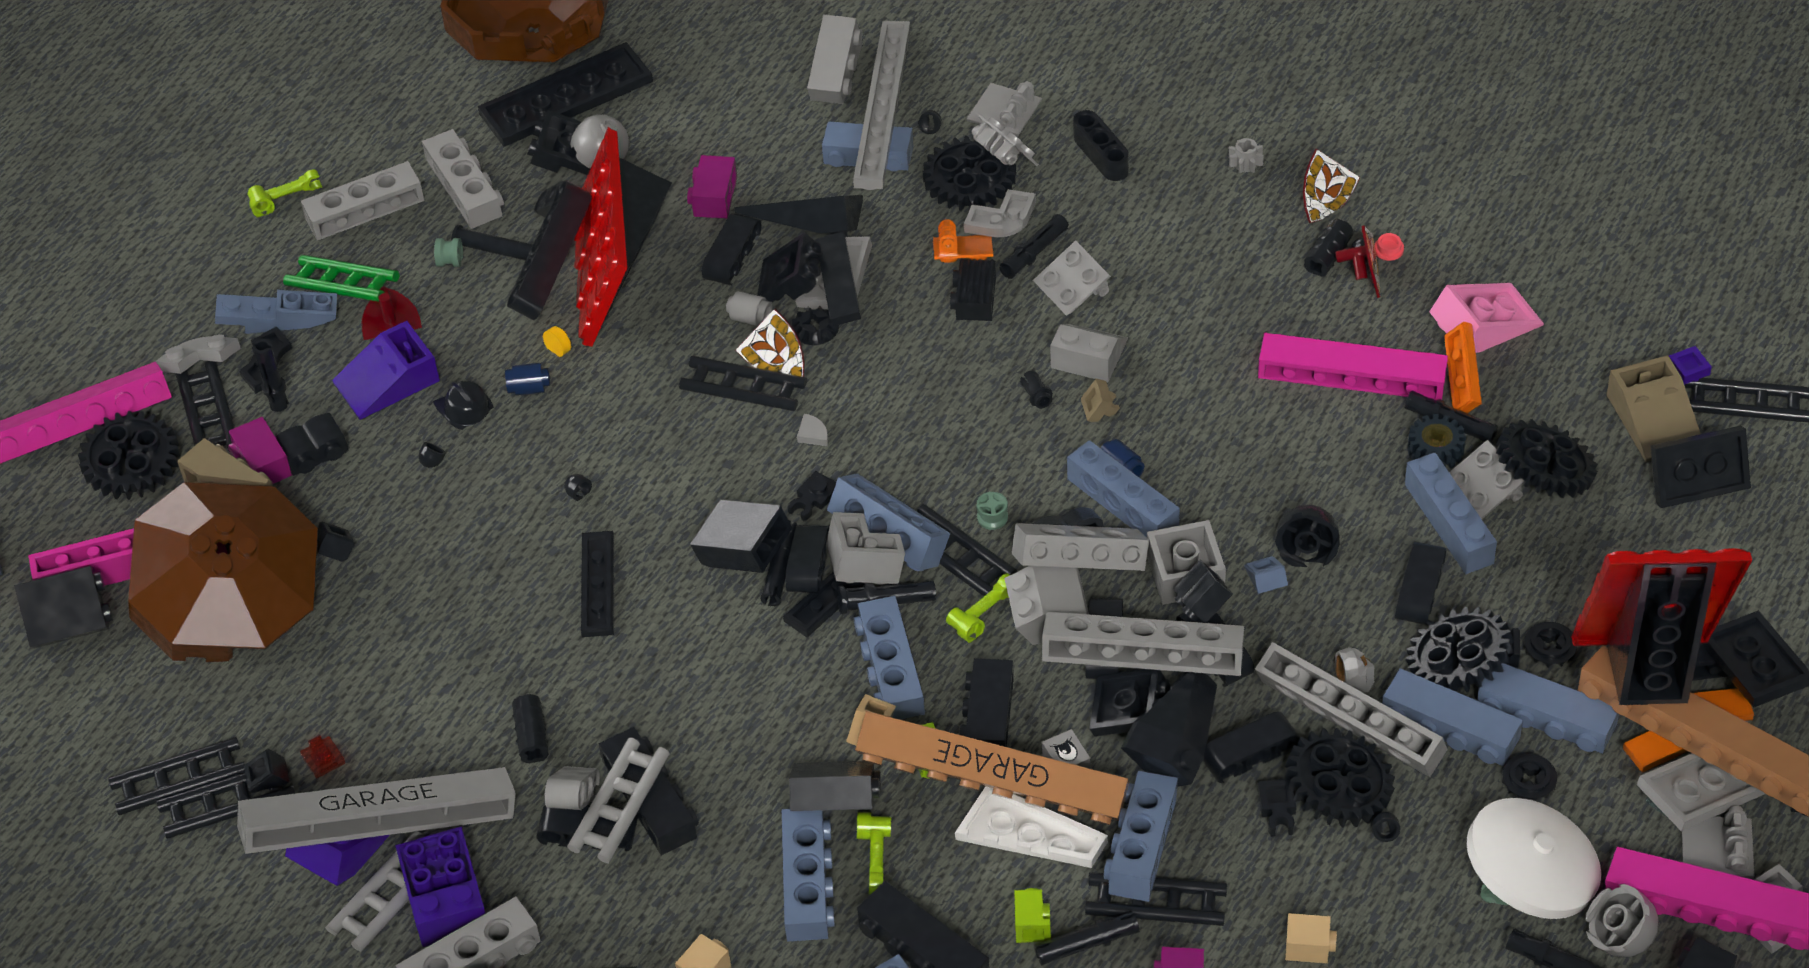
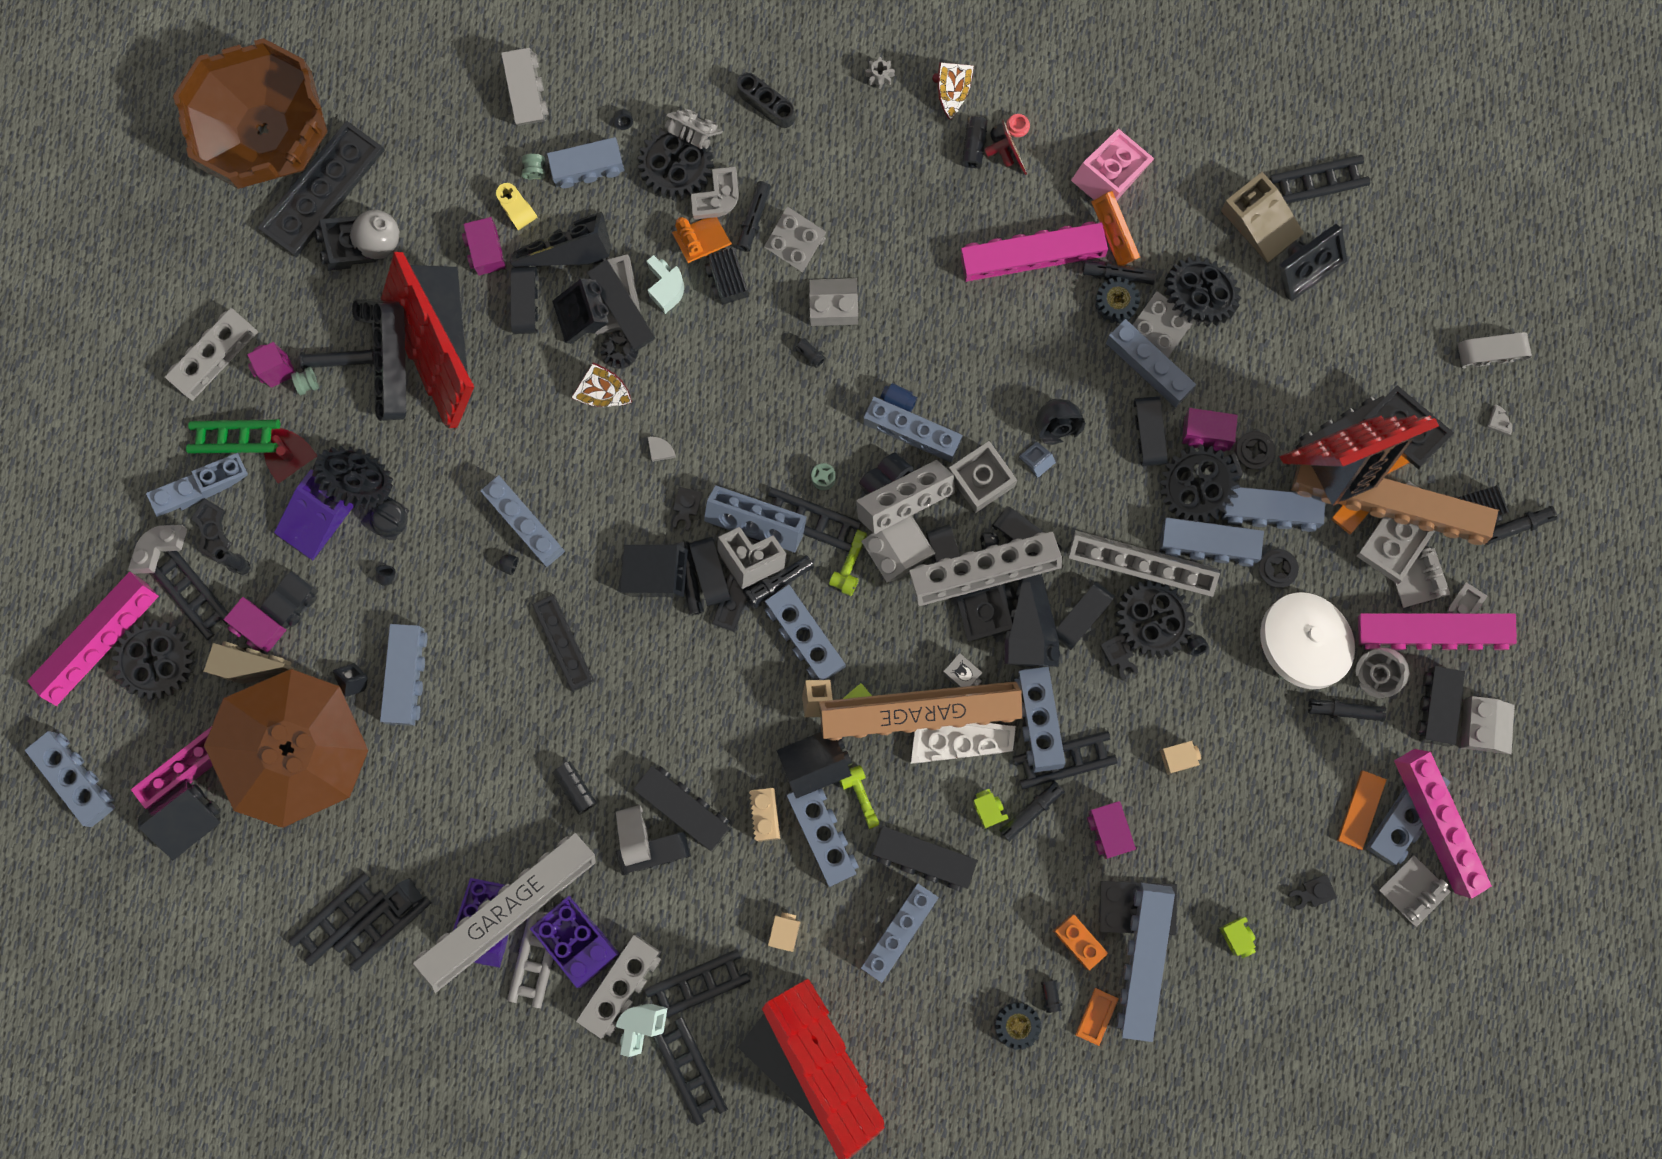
camera: 20 degrees left, 30 degrees up
(263, 199) = (129, 378): lime brick -> none
(322, 756) = (435, 864): clear red tile -> none
(395, 553) = (403, 674): none -> sand blue brick
(419, 220) = (270, 364): none -> magenta brick
(448, 342) = (352, 477): none -> black gear
(463, 178) = (251, 283): light grey brick -> none
(527, 379) = (425, 480): dark blue brick -> none
(557, 341) = (430, 436): yellow tile -> none
(616, 447) = (522, 521): none -> sand blue brick
(622, 817) = (679, 845): light grey bar -> none
(744, 827) = (765, 814): none -> tan brick
(748, 308) = (564, 354): light grey brick -> none
(754, 394) = (601, 431): black bar -> none
(767, 162) = (516, 208): none -> light yellow piece
(807, 134) = (533, 166): none -> sand green wheel
(882, 105) = (584, 124): light grey plate -> none
(901, 281) = (669, 288): none -> light aqua brick
(989, 701) = (890, 650): black brick -> none
(1007, 106) = (674, 84): light grey hinge -> none
(1098, 401) = (860, 349): dark tan tile -> none
(1201, 592) = (1011, 511): black brick -> none
(1354, 669) = (1132, 527): light grey rock -> none
(1498, 593) = (1209, 429): none -> magenta brick
(1691, 364) = (1278, 172): dark purple tile -> none

